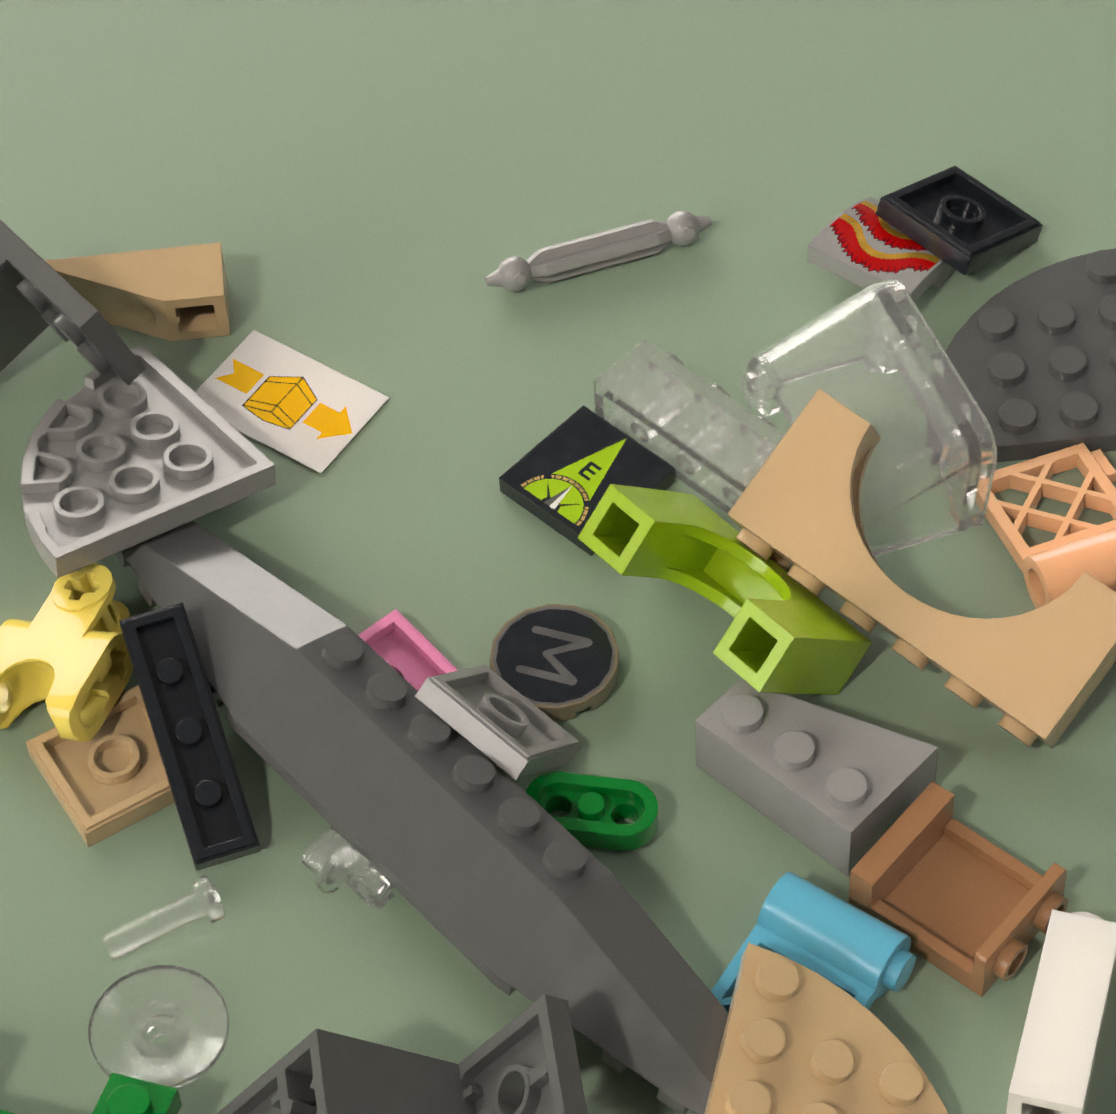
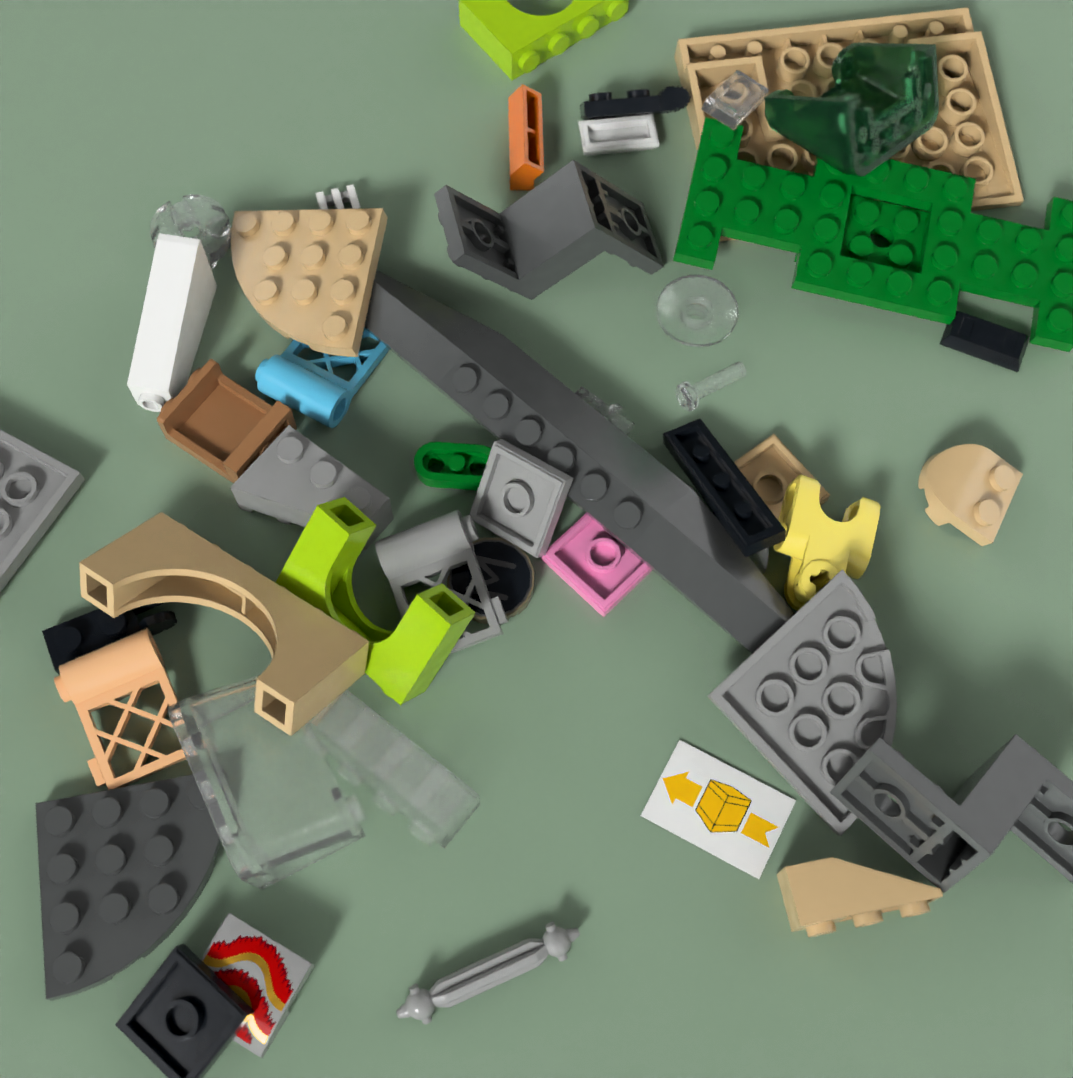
camera: 170 degrees right, 15 degrees up
(574, 467) = (481, 737): black tile -> none
(637, 673) = (435, 550): none -> light grey piece

